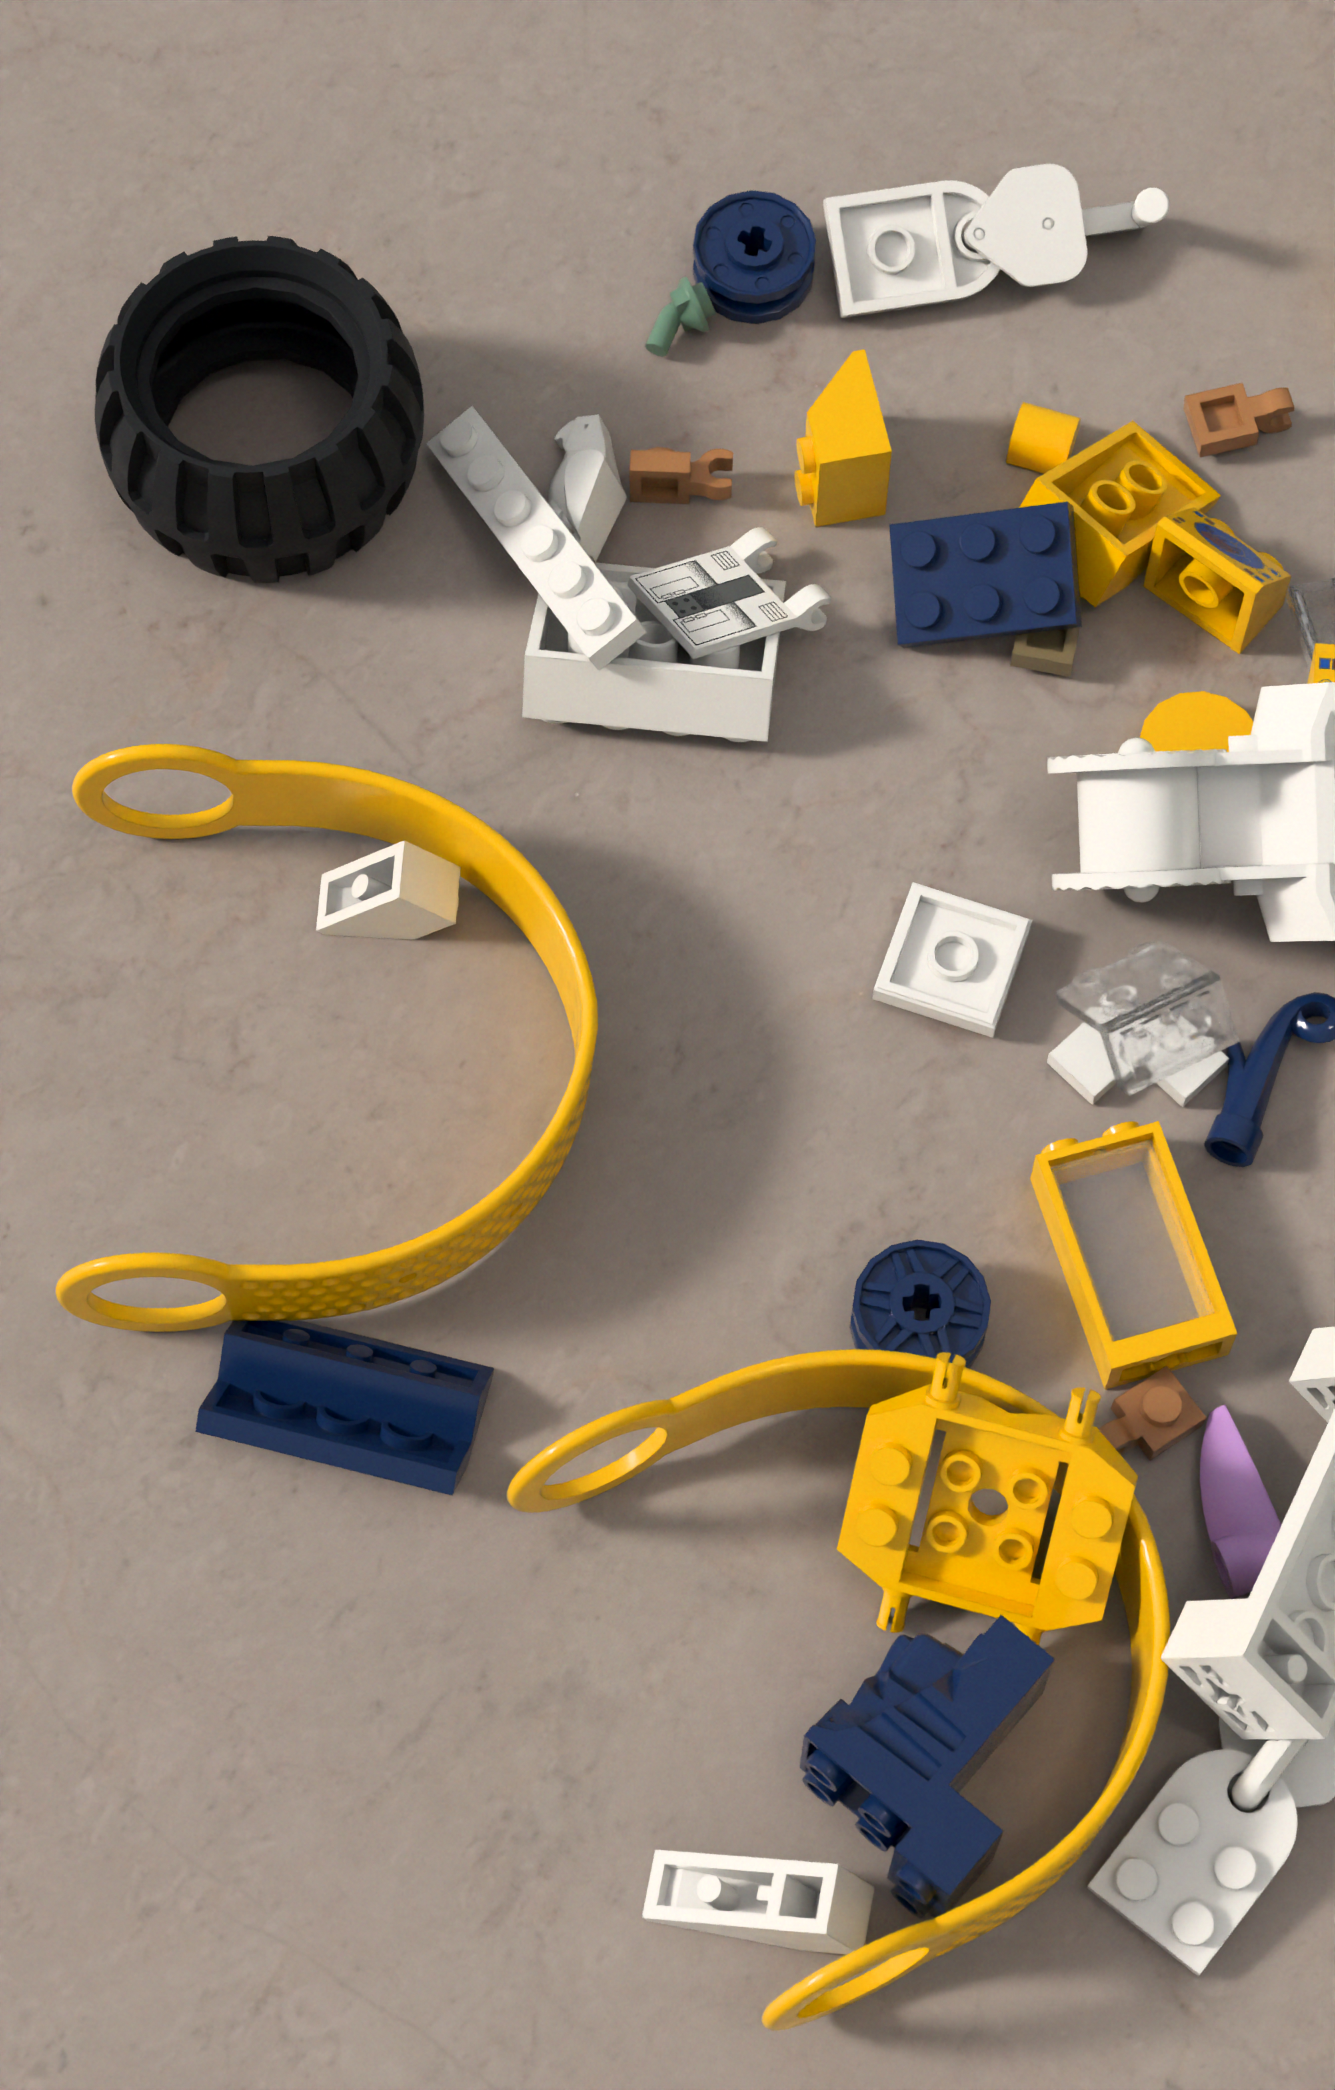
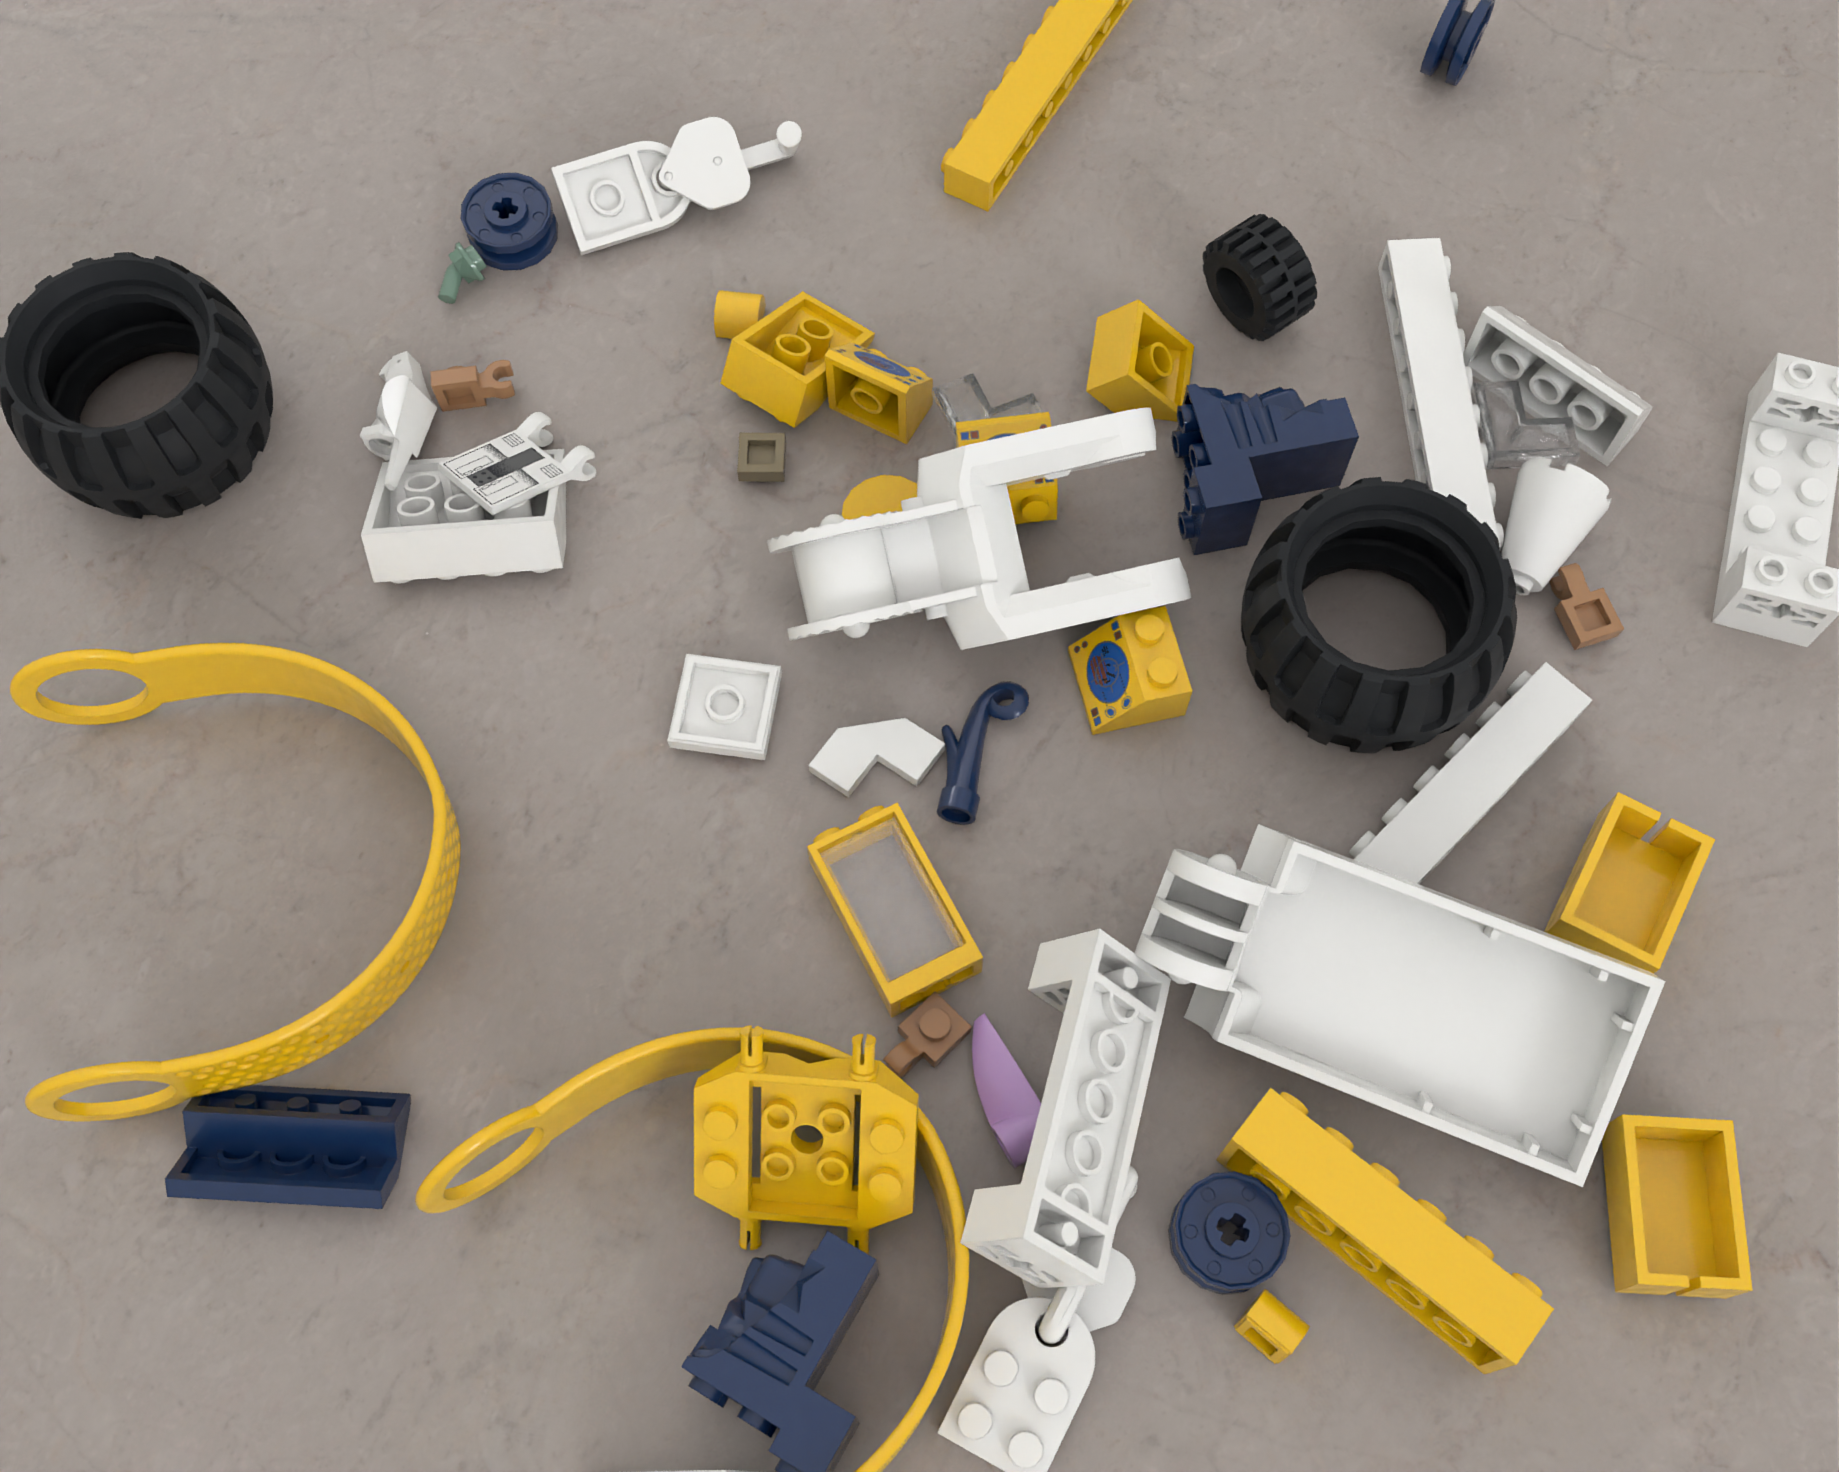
camera: 10 degrees left, 0 degrees up
(390, 895) = (286, 735): white slope -> none
(536, 539) = (365, 448): white plate -> none
(845, 449) = (588, 343): yellow slope -> none
(926, 1278) = (731, 958): dark blue wheel -> none
(985, 575) = (707, 417): dark blue plate -> none
(1152, 1012) = (881, 720): clear bracket -> none
(1230, 420) = (872, 278): medium nougat plate -> none

